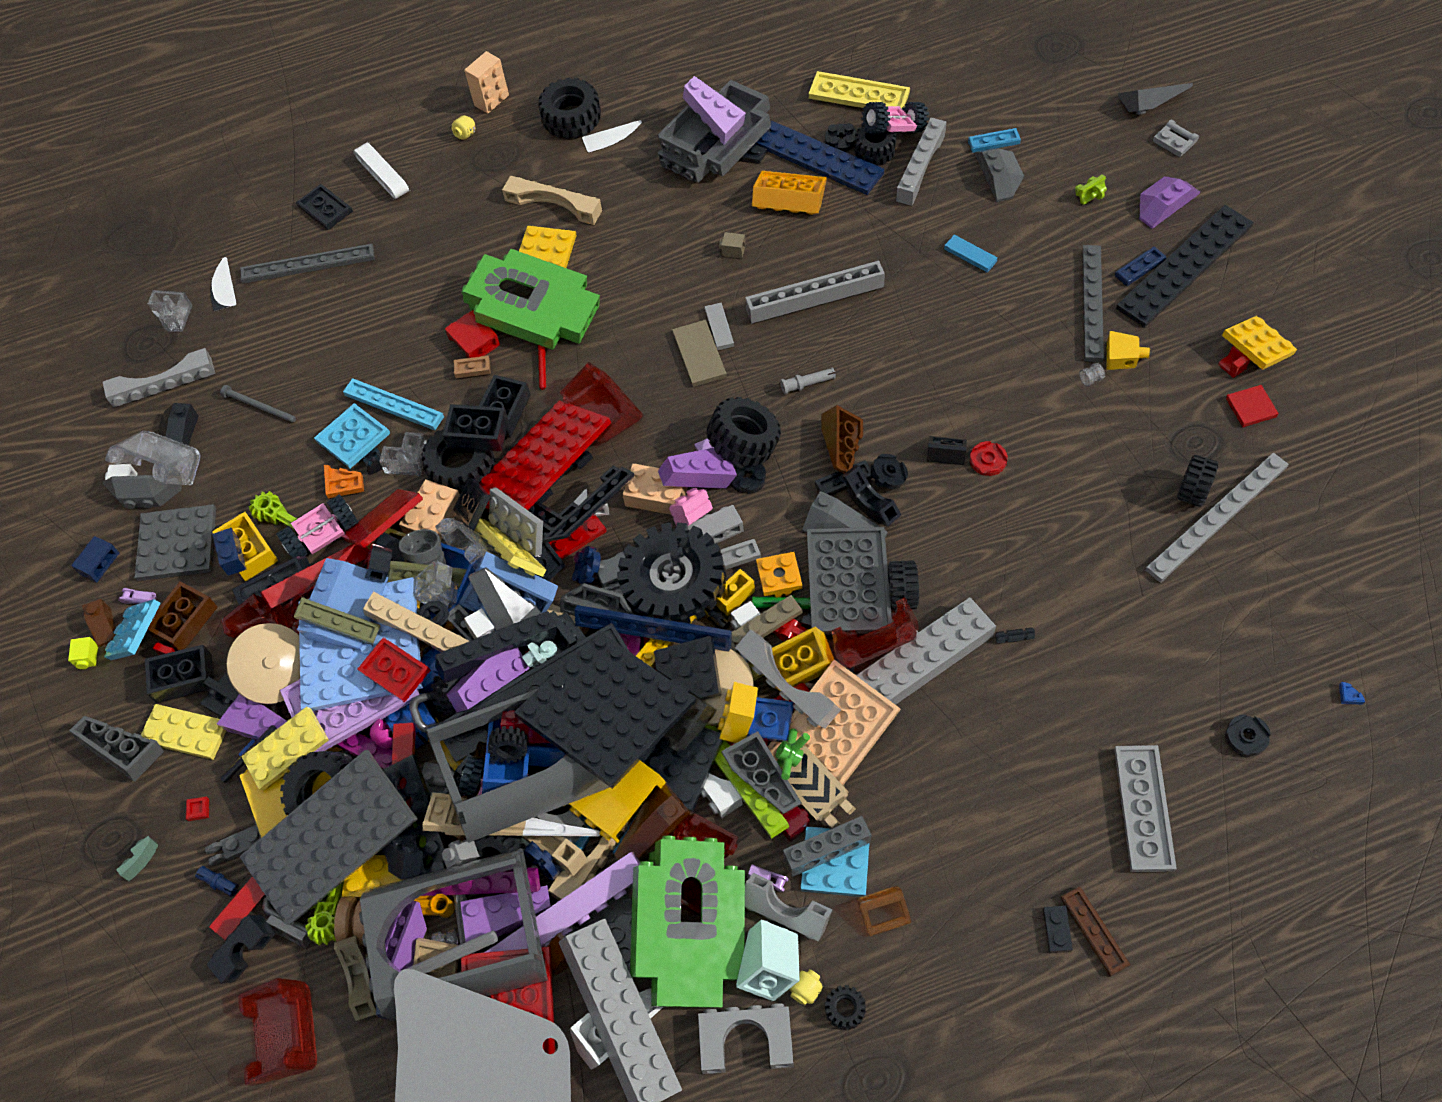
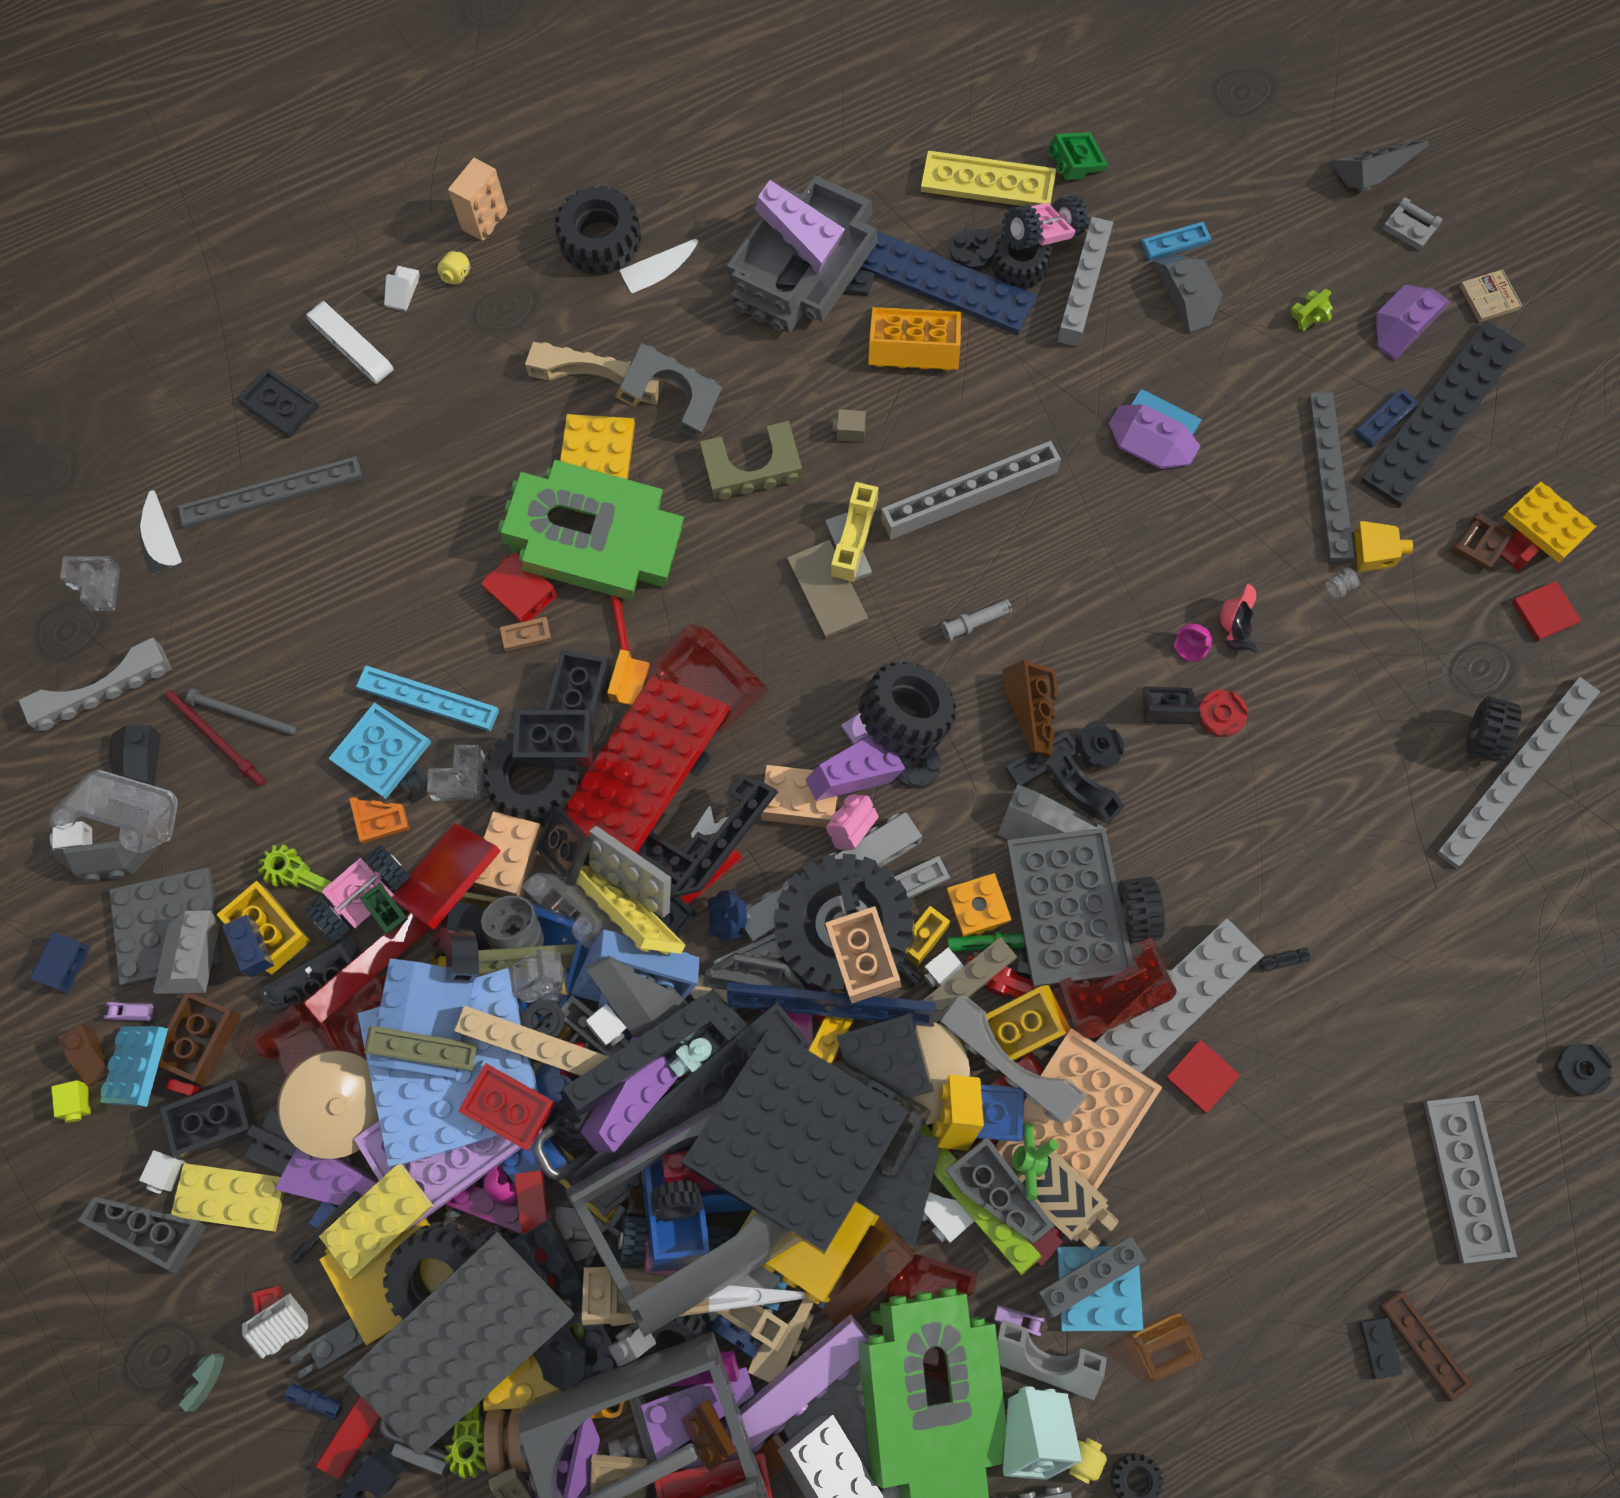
camera: 10 degrees left, 10 degrees up
(138, 707) = (161, 1172): none -> white brick
(187, 556) = (187, 953): none -> light grey slope
(198, 823) = (275, 1326): none -> white brick
(253, 440) = (245, 767): none -> dark red bar
(332, 537) = (383, 908): none -> dark green slope
(423, 139) = (400, 288): none -> white slope
(506, 924) = (708, 1435): none -> reddish brown plate
(540, 401) = (627, 679): none -> light orange panel
(589, 193) = (698, 391): none -> dark grey arch
(637, 275) = (729, 481): none -> olive arch
(679, 588) = (863, 954): none -> light nougat brick
(730, 301) = (858, 522): none -> light yellow arch
(926, 79) = (1076, 155): none -> green plate
(938, 714) = (1203, 1076): none -> red tile
(960, 266) = (1153, 436): none -> medium lavender wedge
(970, 405) = (1193, 642): none -> dark pink hair
(1007, 391) = (1236, 620): none -> hair
(1210, 357) = (1489, 546): none -> reddish brown plate
(1231, 189) = (1490, 295): none -> tan tile

